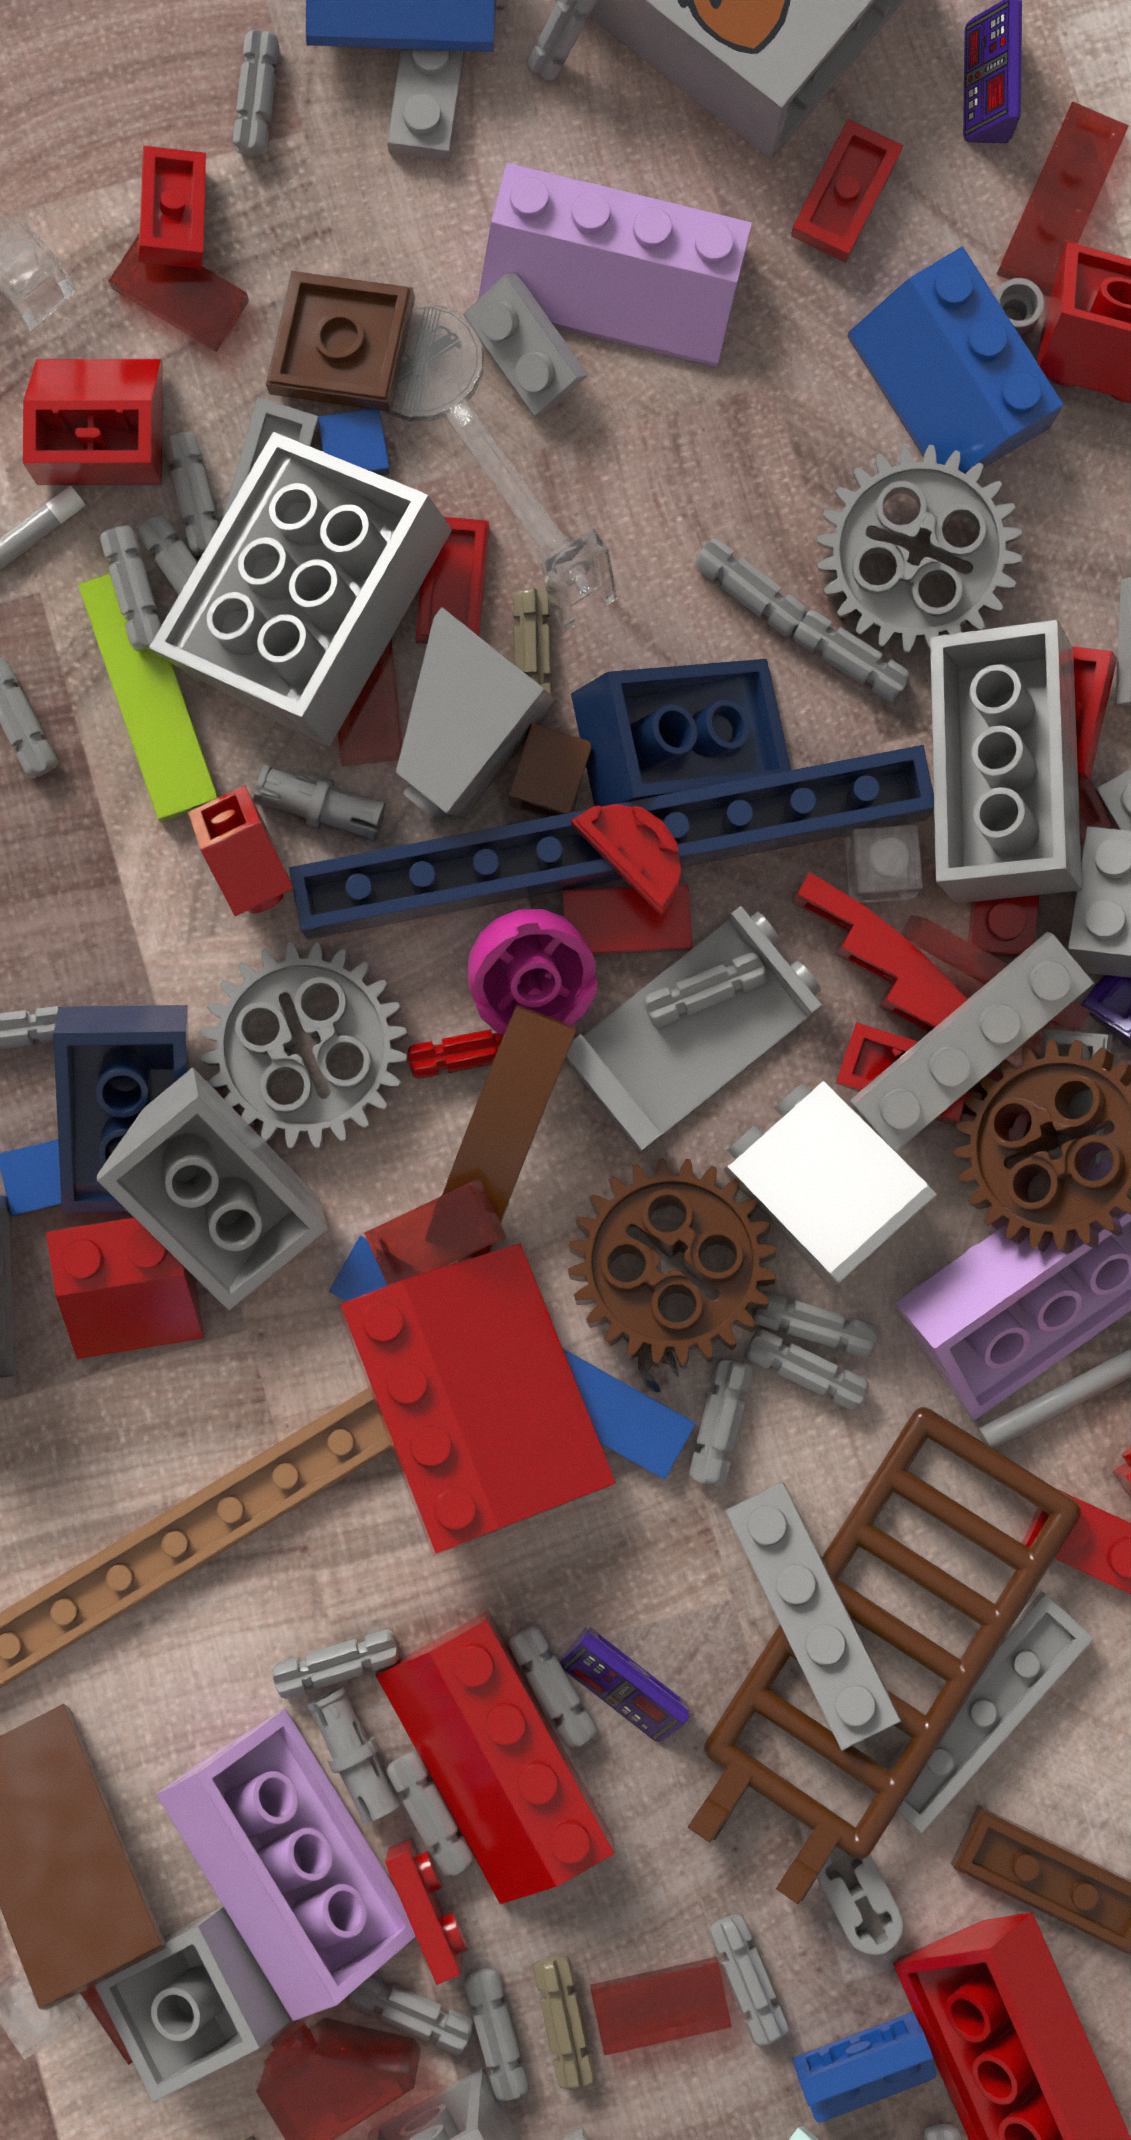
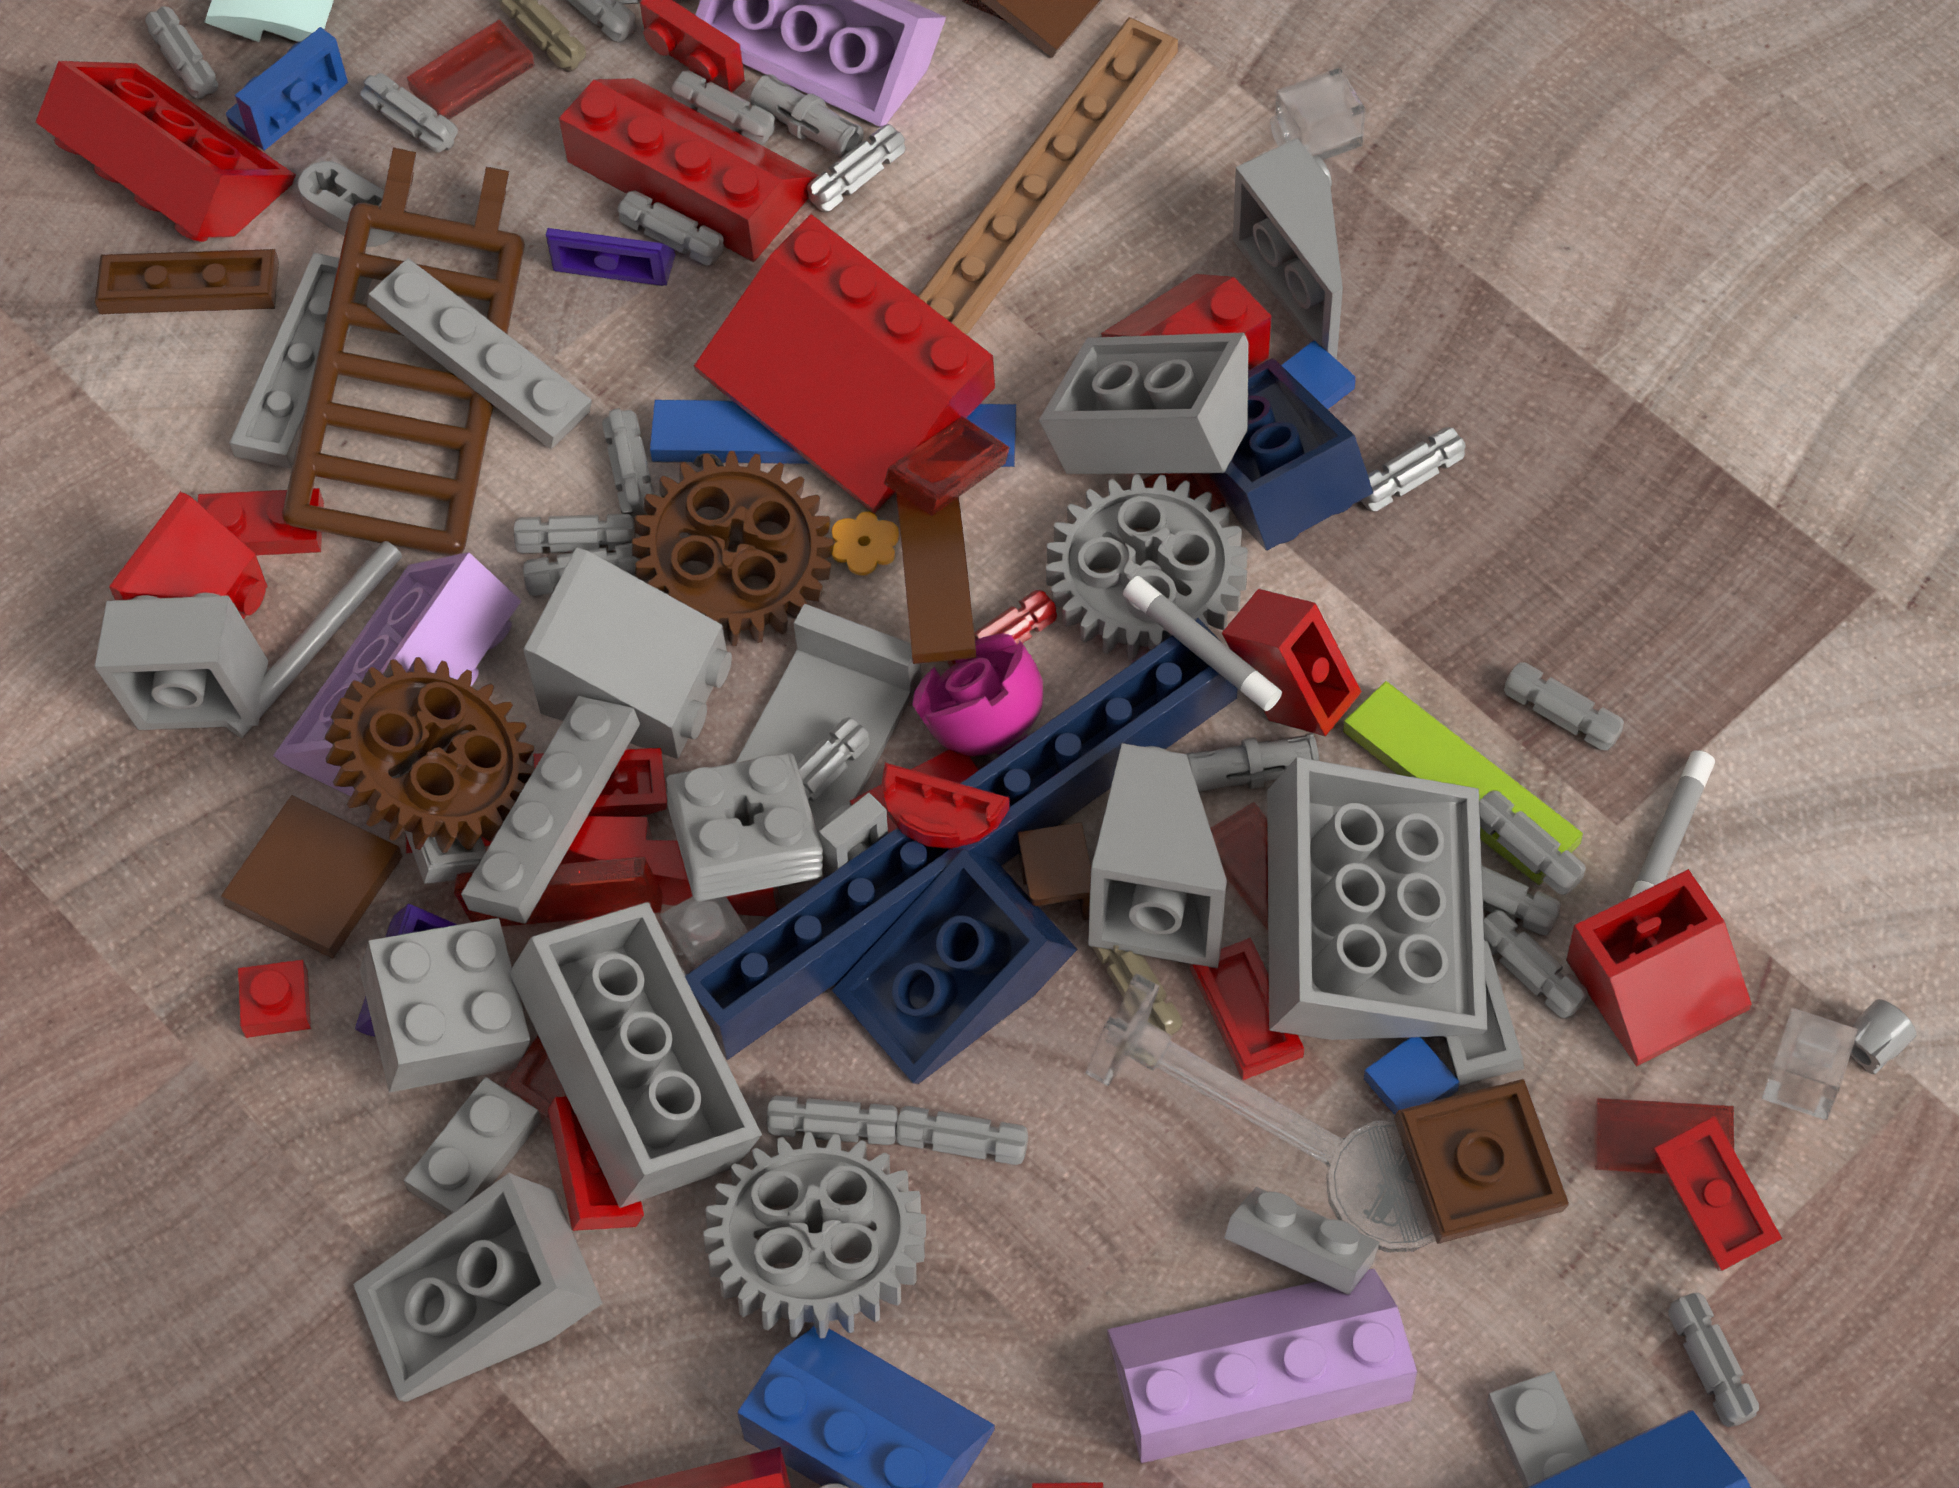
camera: 160 degrees right, 25 degrees down
(314, 893) = (1202, 643): none -> light grey bar
(524, 1214) = (864, 542): none -> light orange plant
(722, 870) = (851, 832): none -> light grey plate
(788, 886) = (744, 826): none -> light grey brick

